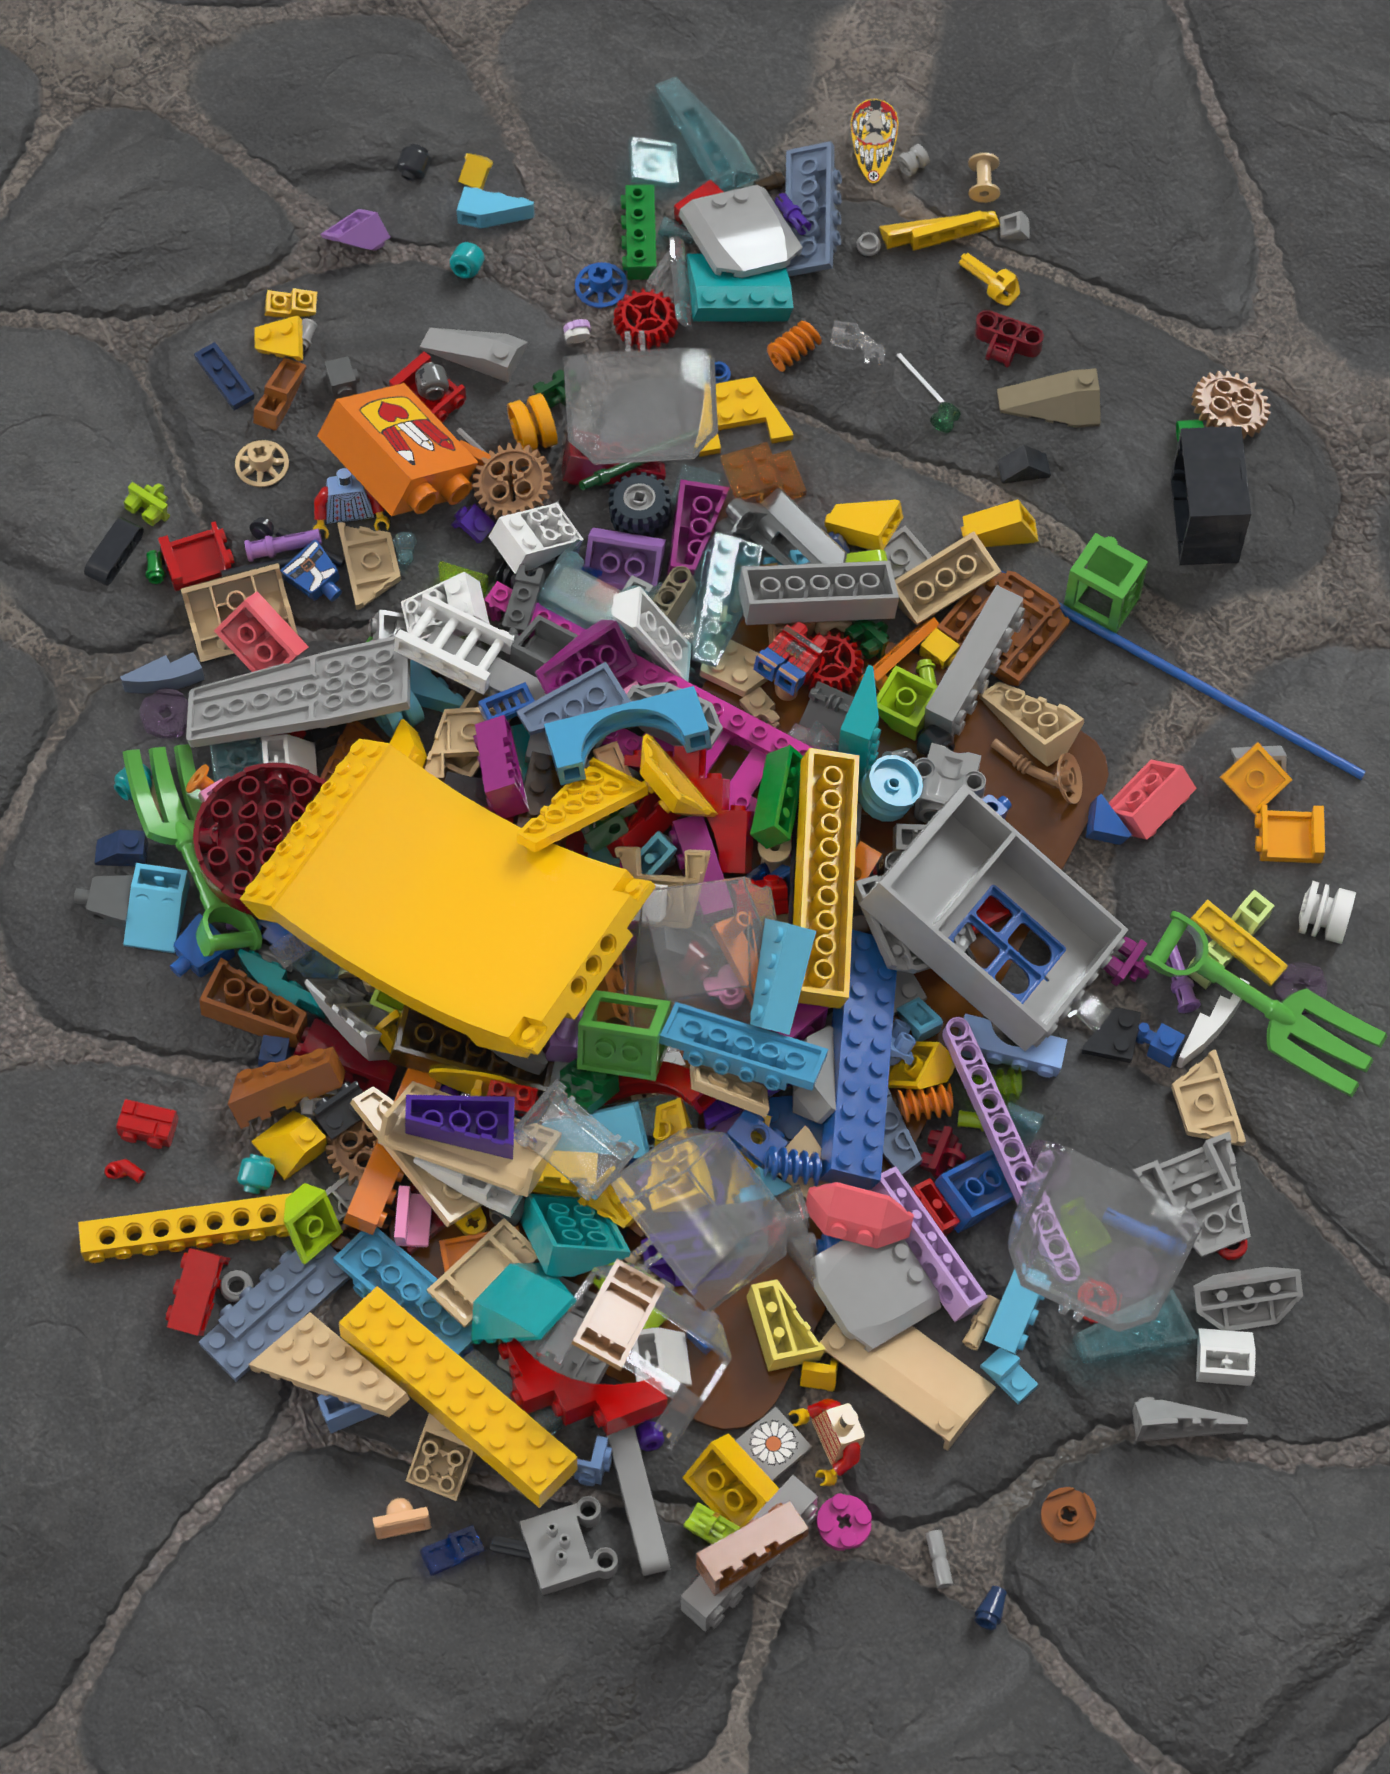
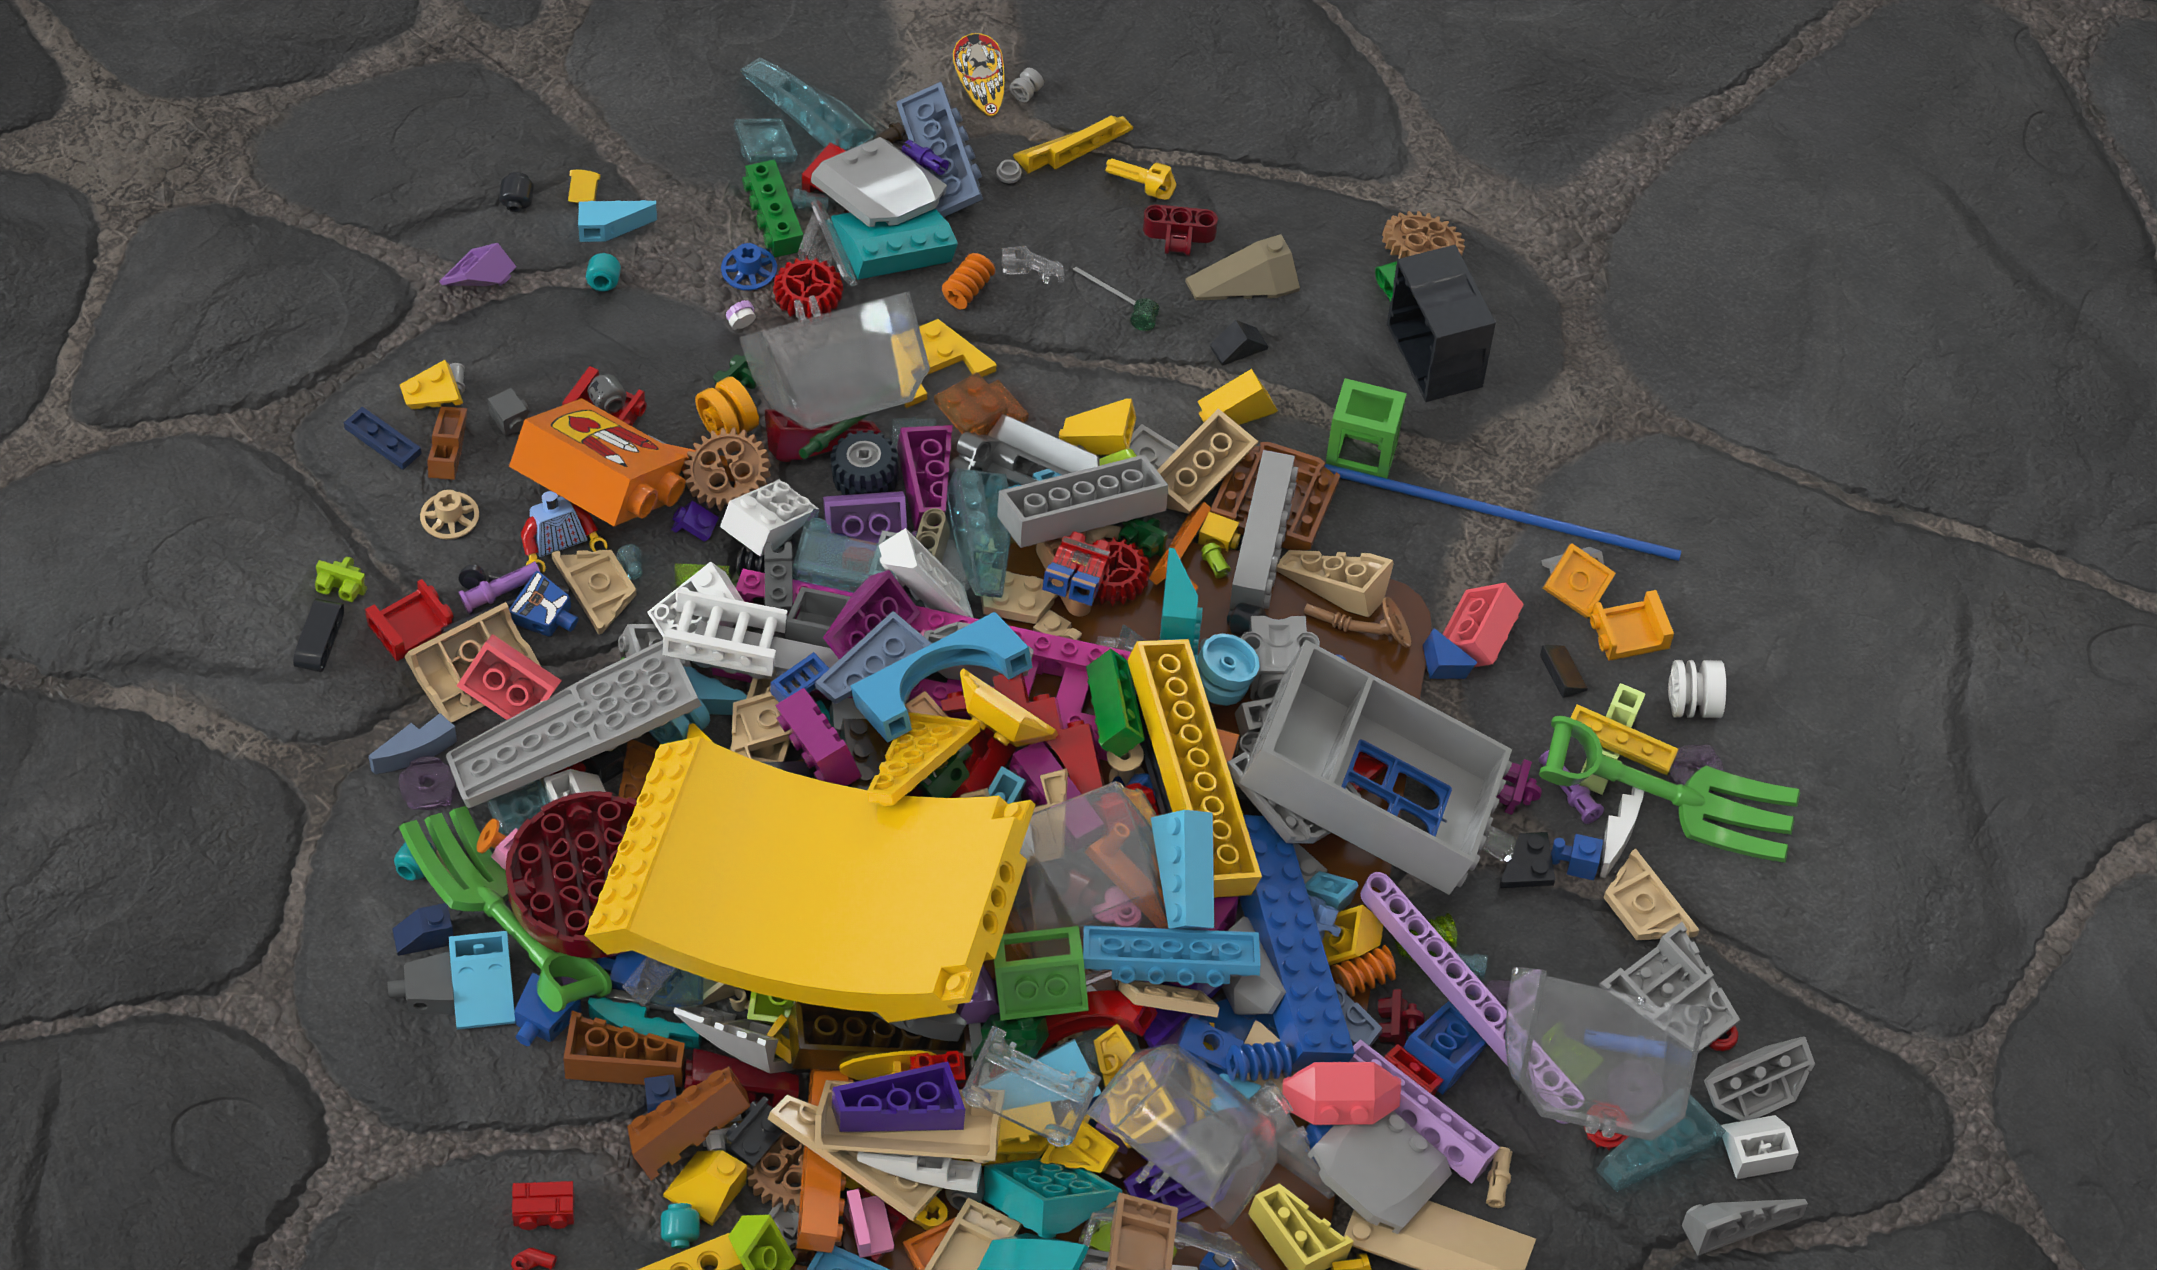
camera: 20 degrees left, 10 degrees down
(155, 570) = (369, 644): green pin -> none
(290, 304) = (425, 356): yellow slope -> none
(482, 351) = (651, 357): light grey wedge -> none
(828, 707) = (1135, 610): dark grey hinge -> none
(904, 702) = (1213, 585): lime slope -> none
(969, 1119) = (1415, 979): lime pin -> none
(983, 164) = (1108, 96): tan piece -> none
(1009, 1375) = (1540, 1220): medium azure slope -> none
(1013, 1316) = (1532, 1154): medium azure wedge -> none
(1014, 226) = (1148, 125): light grey slope -> none
(1044, 1059) = (1466, 901): light blue arch -> none
(1212, 860) = (1562, 670): none -> black slope

